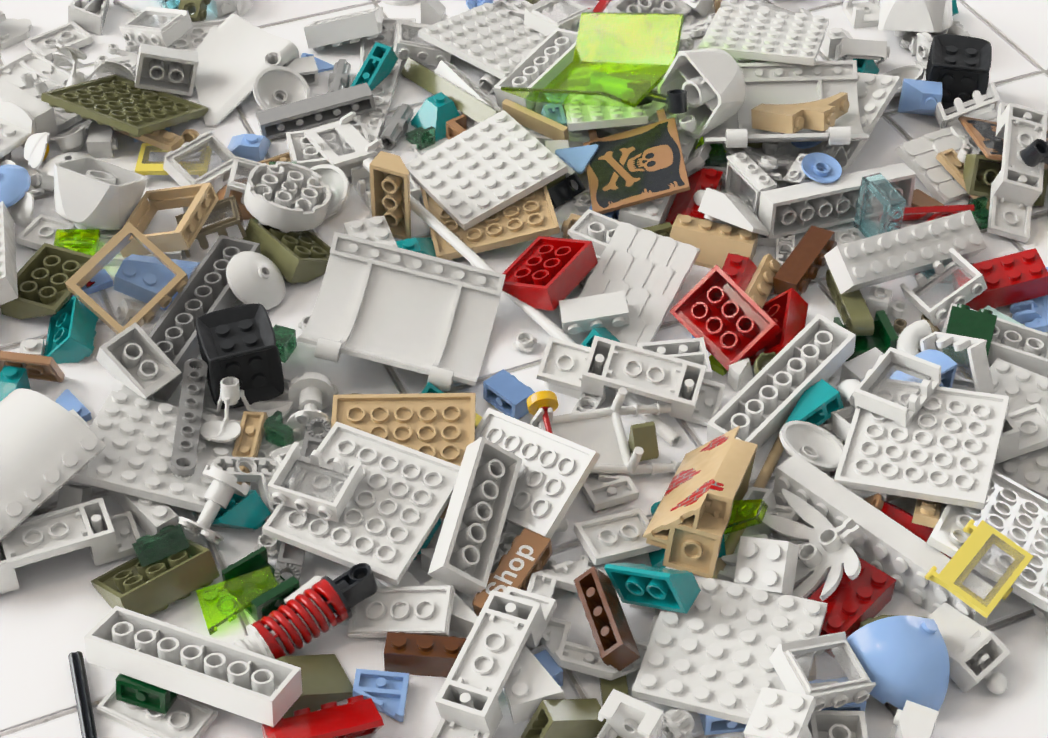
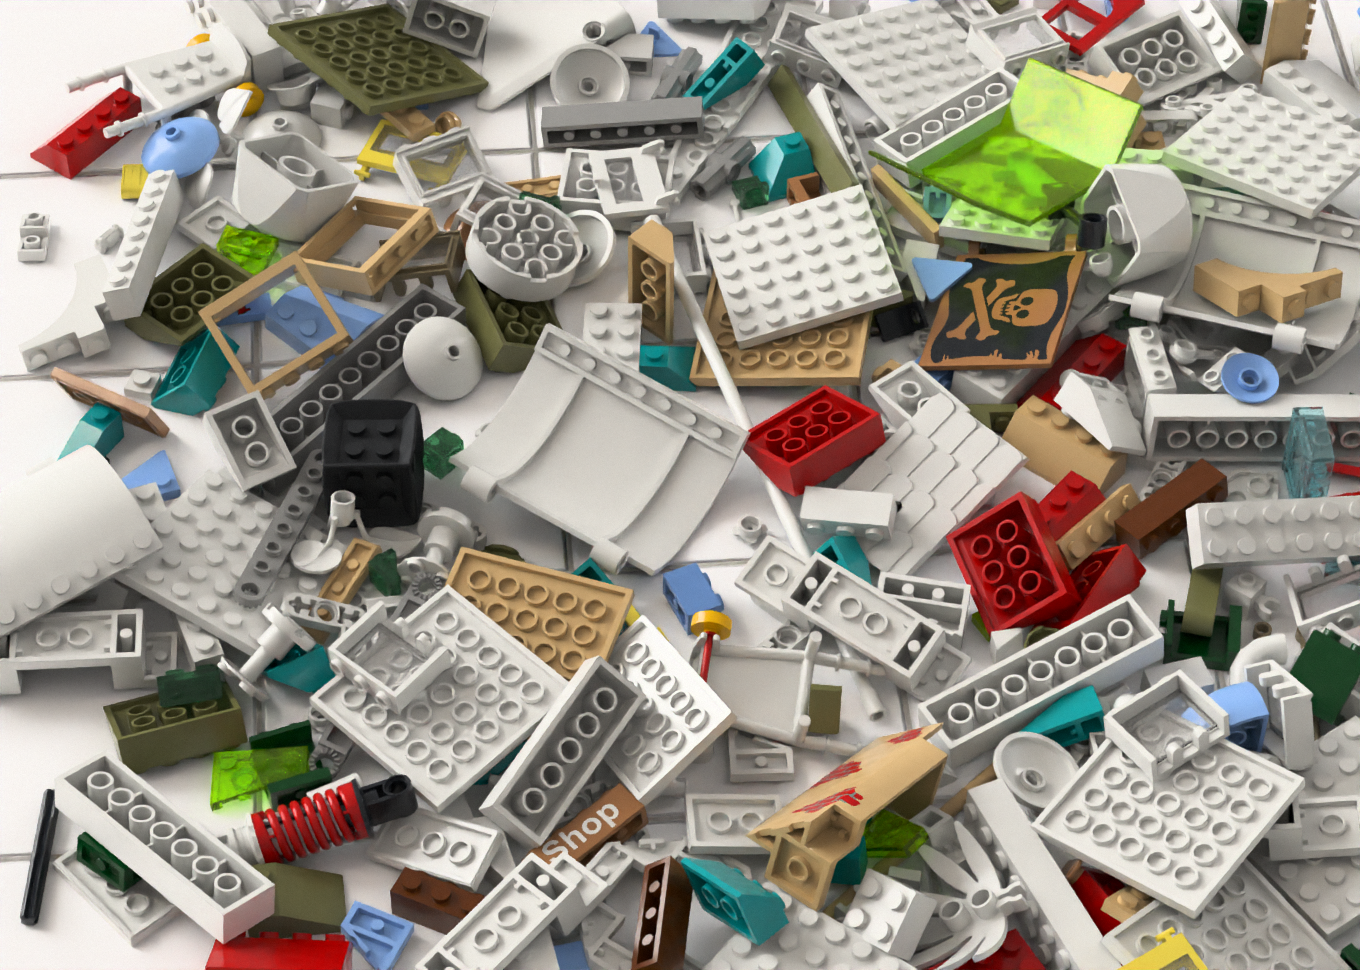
camera: 20 degrees right, 5 degrees up
(128, 309) = (275, 358): white bracket -> none
(249, 146) = (516, 158): light blue slope -> none

